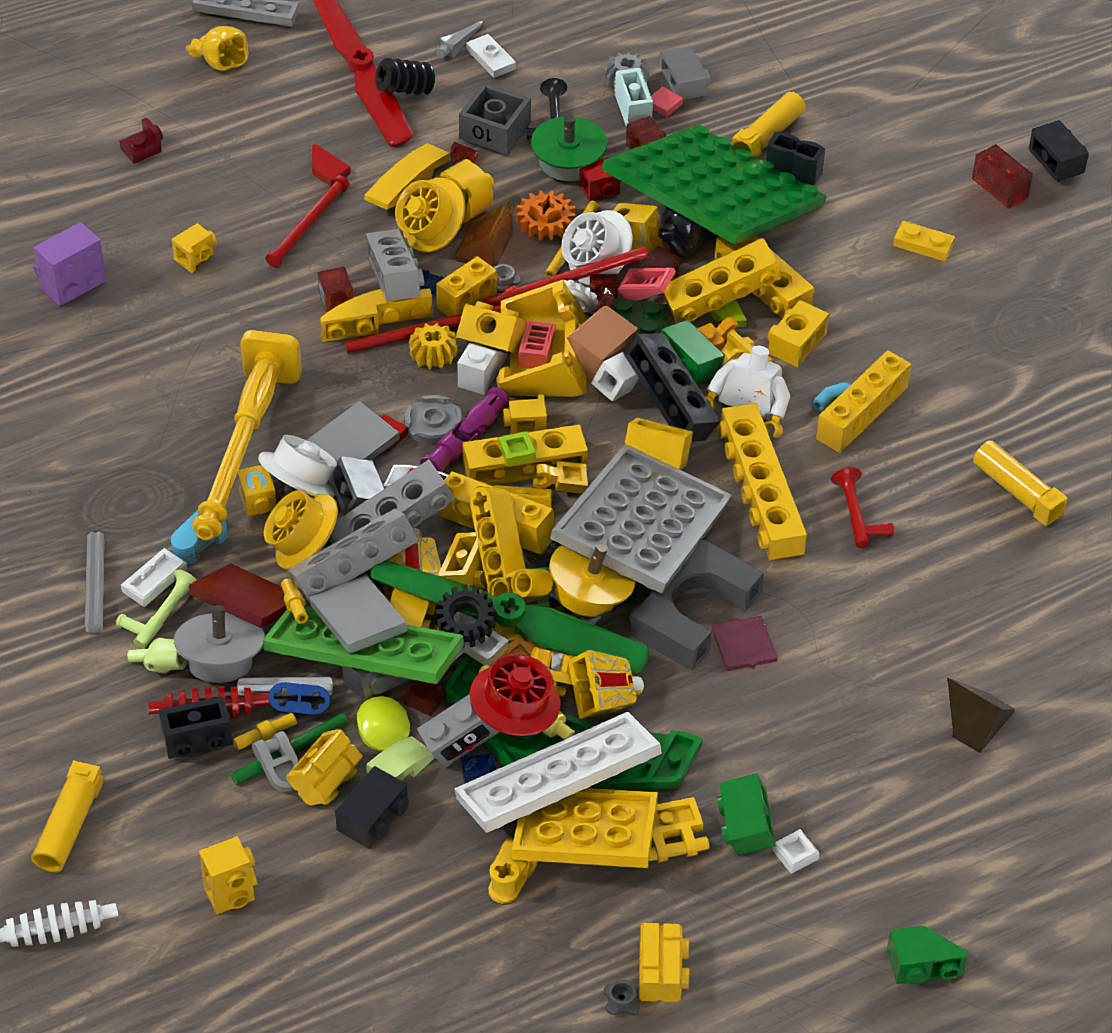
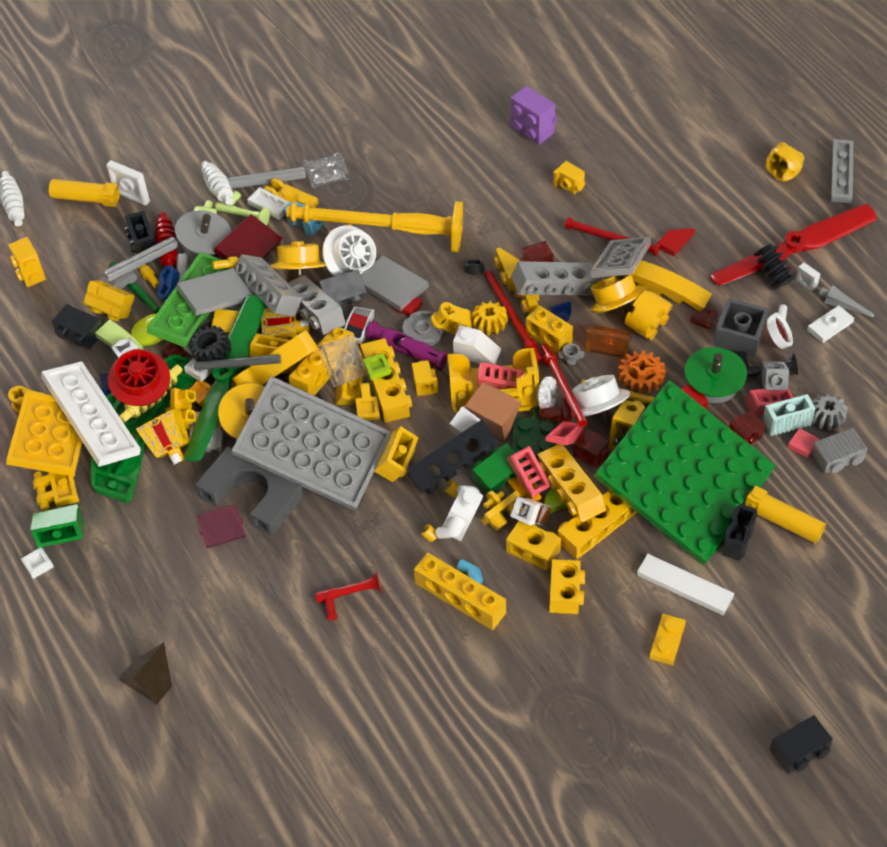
camera: 90 degrees right, 5 degrees up
(79, 740) = (129, 182): none -> white tile
(97, 636) = (217, 183): none -> white piece
(108, 504) = (326, 170): none -> clear plate
(141, 551) = (290, 193): none -> yellow hinge
(143, 144) = (675, 139): dark red bracket -> none
(261, 715) = (140, 259): none -> light grey axle
(335, 356) = (473, 266): none -> black tile
(370, 199) = (620, 257): none -> light grey tile
(421, 53) = (807, 277): none -> white tile
(434, 379) = (451, 317): none -> yellow piece
(475, 326) = (503, 344): yellow brick -> none
(503, 479) = (343, 360): none -> clear plate
(505, 582) = (237, 362): none -> dark grey bar
(507, 84) = (779, 328): none -> white piece
(574, 100) = (774, 375): none -> light grey brick
(601, 113) = (755, 399): none -> coral slope
(700, 315) = (535, 467): none -> coral slope
(762, 482) = (365, 534): yellow brick -> none
(763, 319) = (532, 513): none -> white leg
(852, 219) = (685, 584): none -> white tile
(858, 311) = (565, 586): none -> yellow brick
(1002, 176) = (756, 697): clear red brick -> none
(1044, 502) = (381, 706): yellow piece -> none

